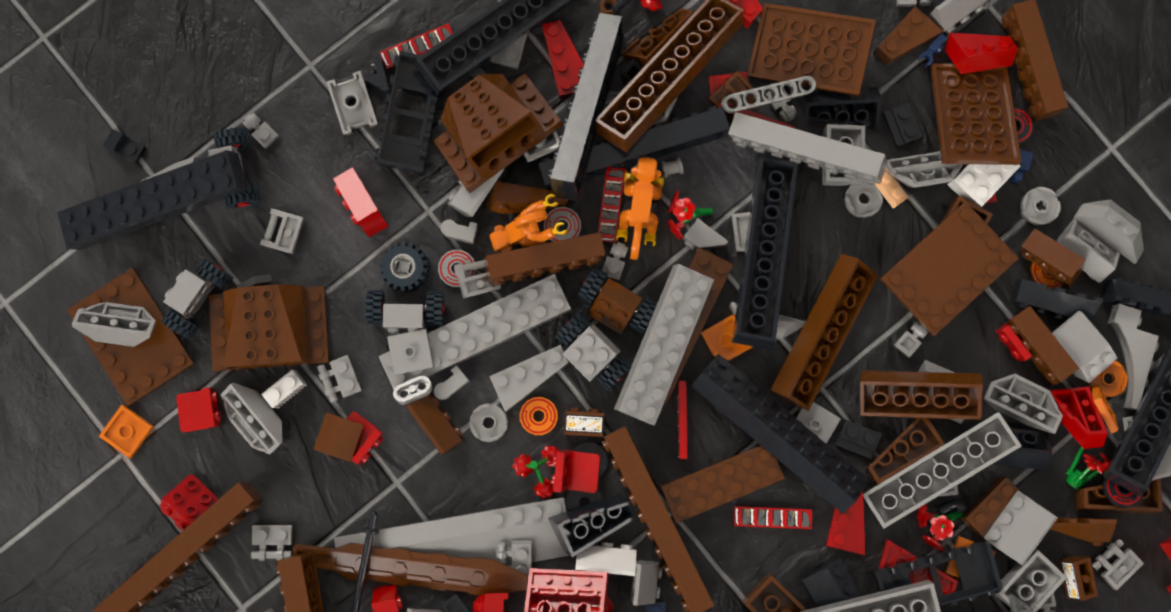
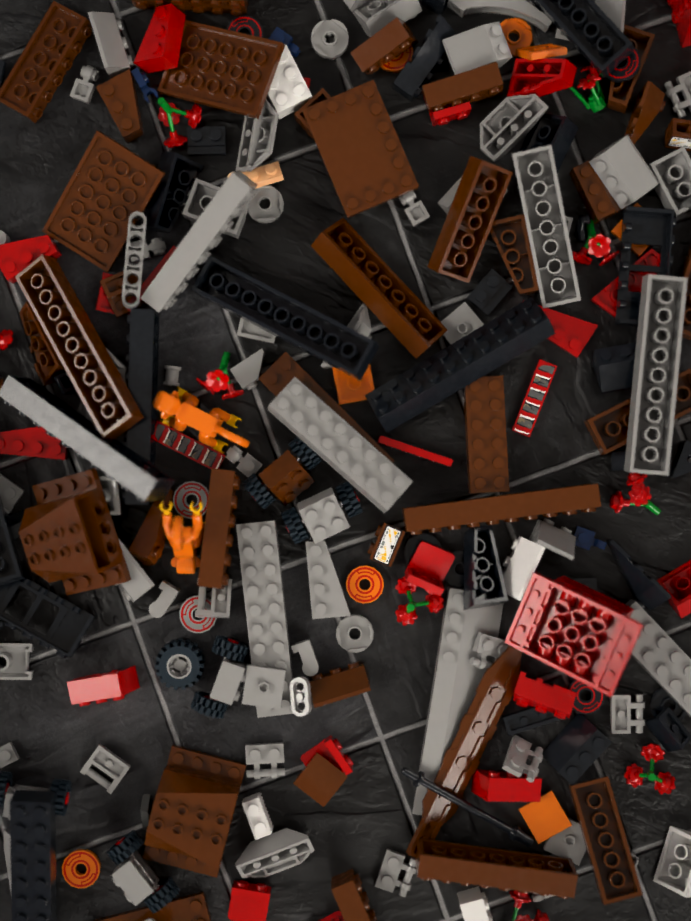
camera: 60 degrees left, 5 degrees up
(169, 238) = (73, 876): none -> orange tile
(913, 83) = (170, 116): none -> red plant

